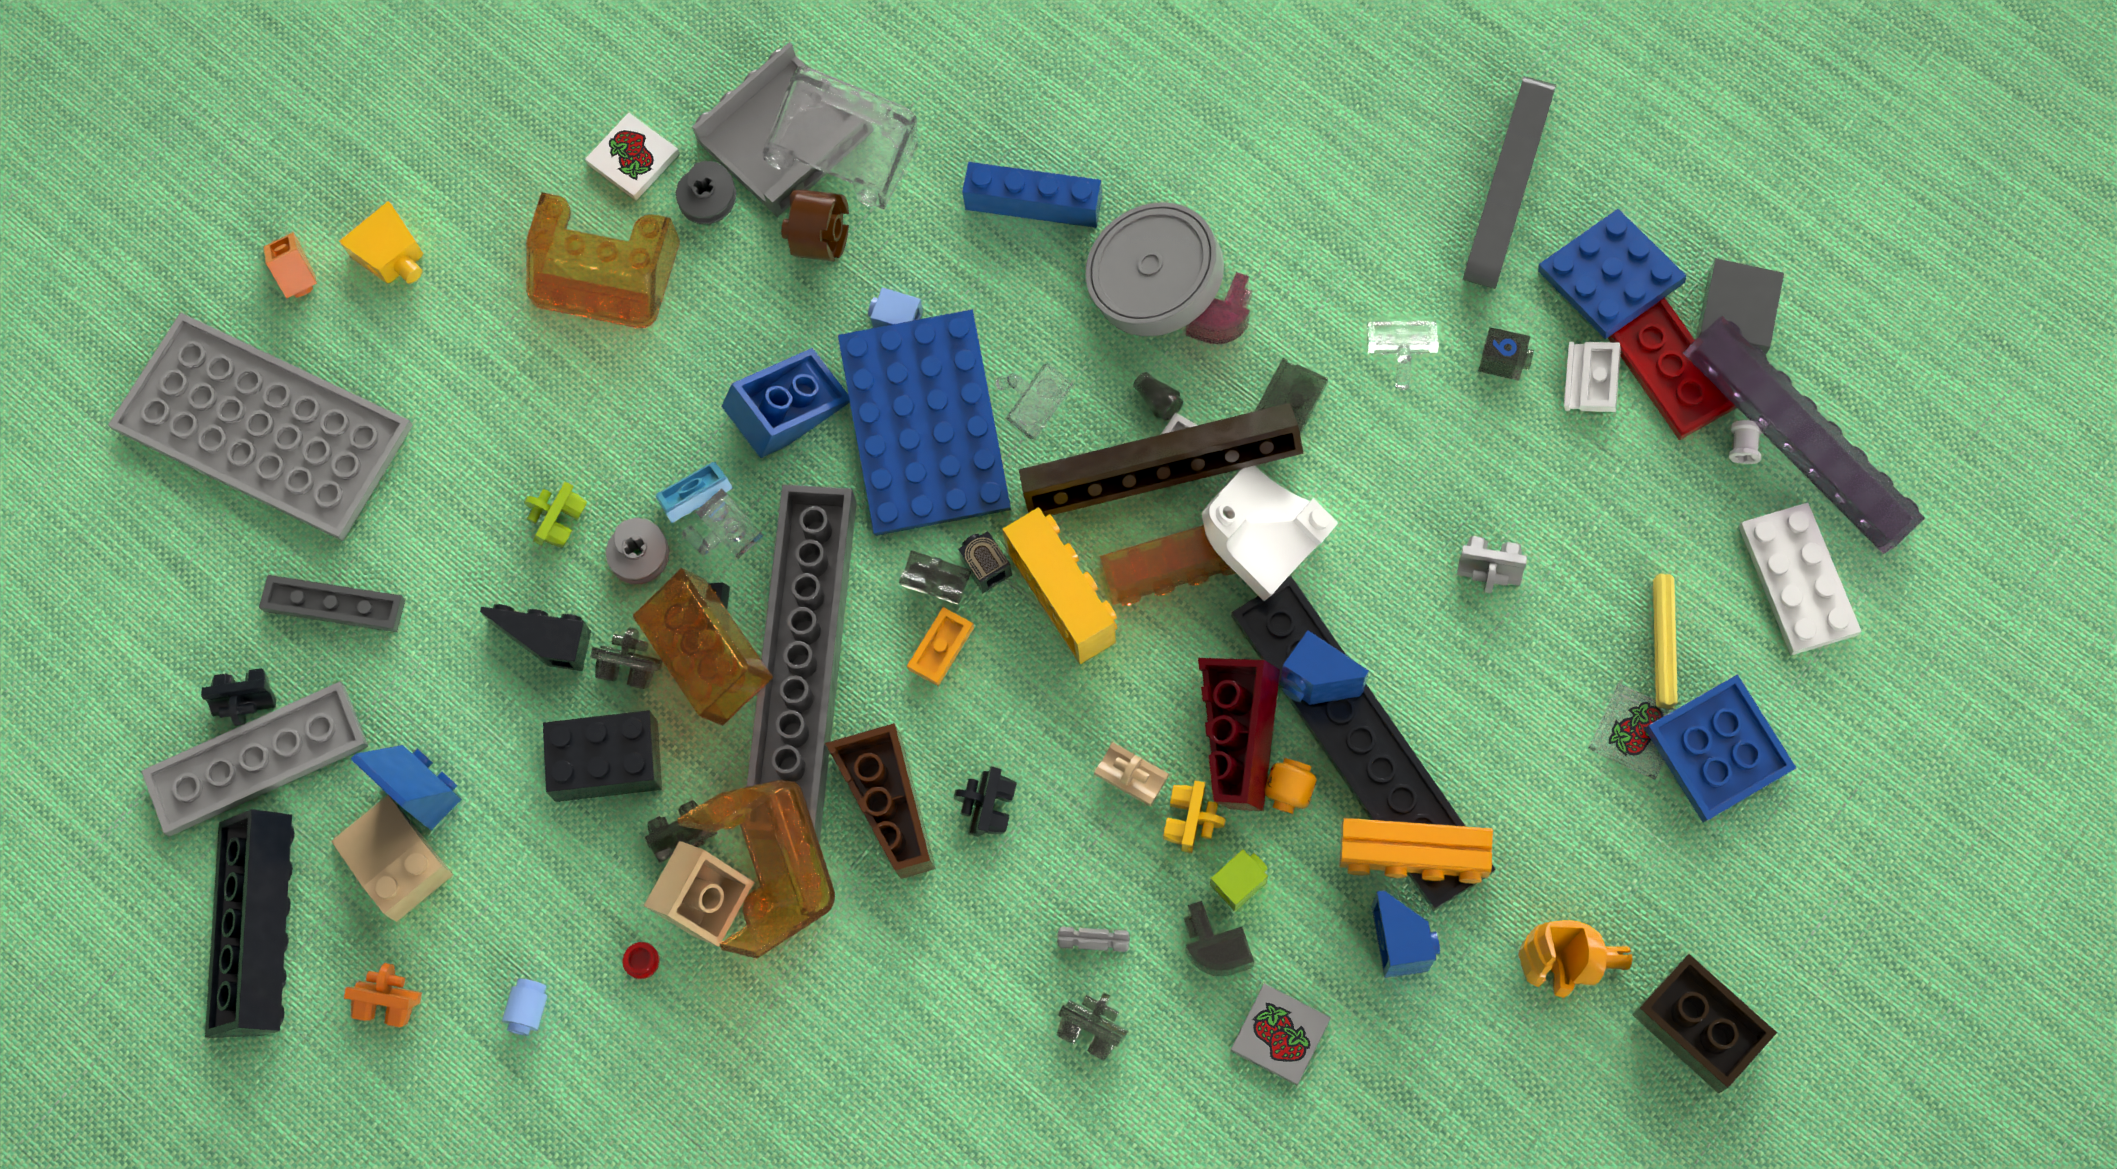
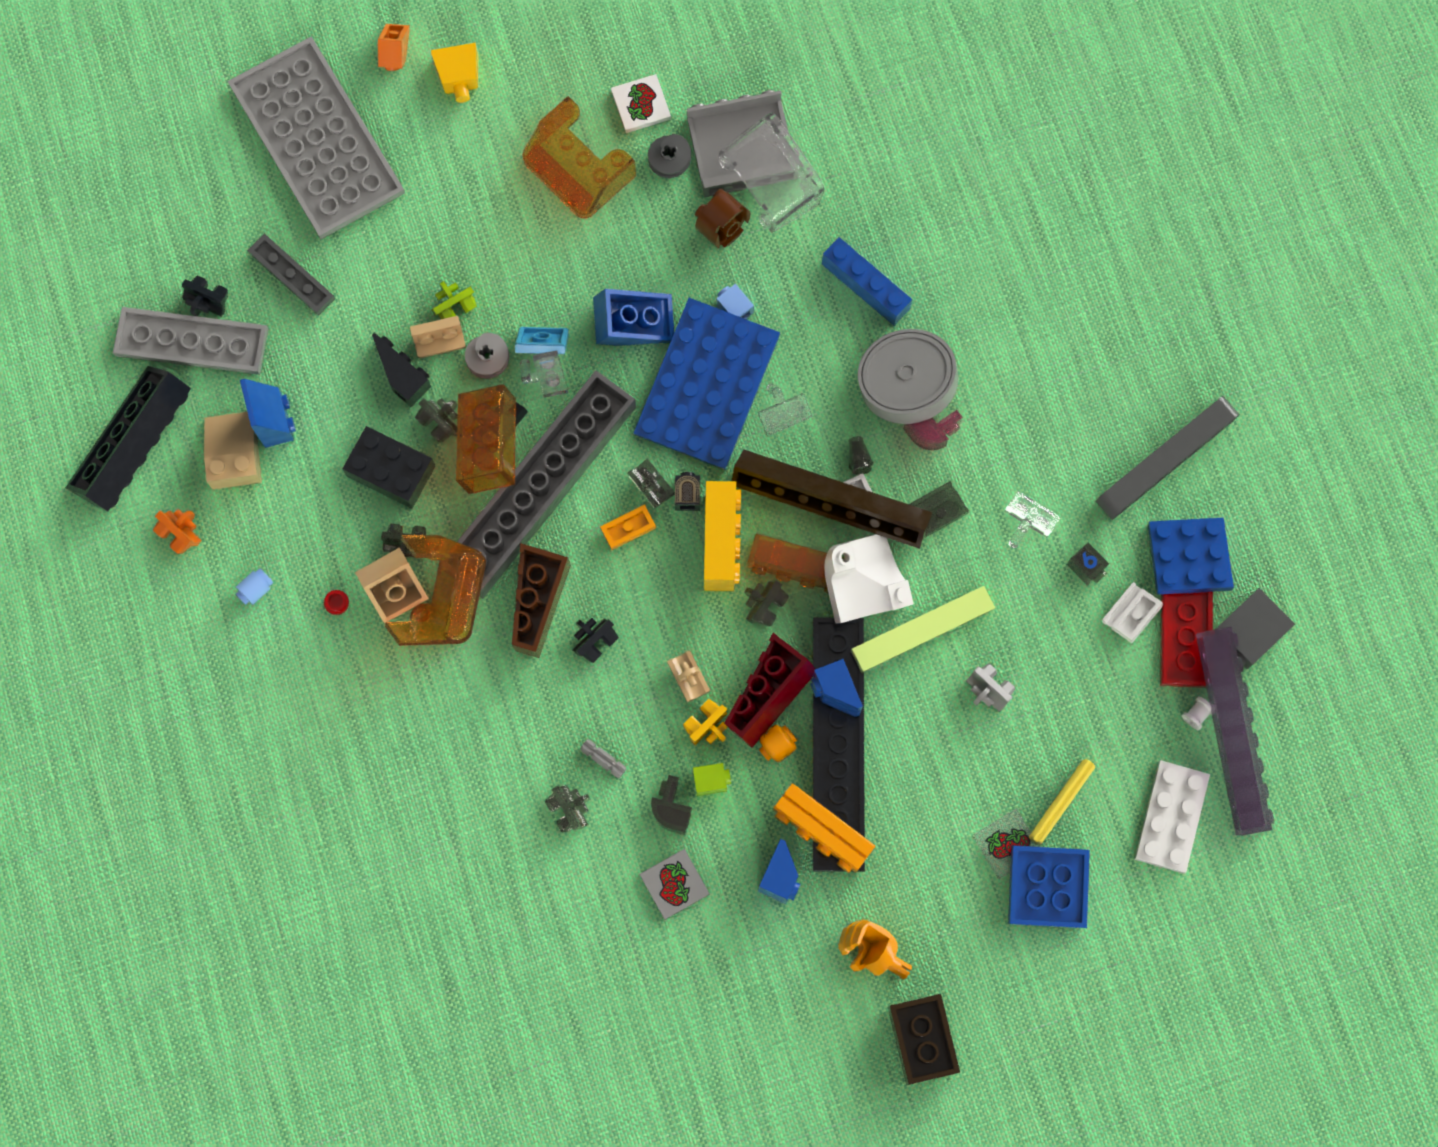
camera: 25 degrees right, 5 degrees up
(563, 565) = (438, 337): none -> tan bracket
(1156, 631) = (760, 612): none -> clear smoke hips
(1367, 546) = (922, 629): none -> yellowish green tile

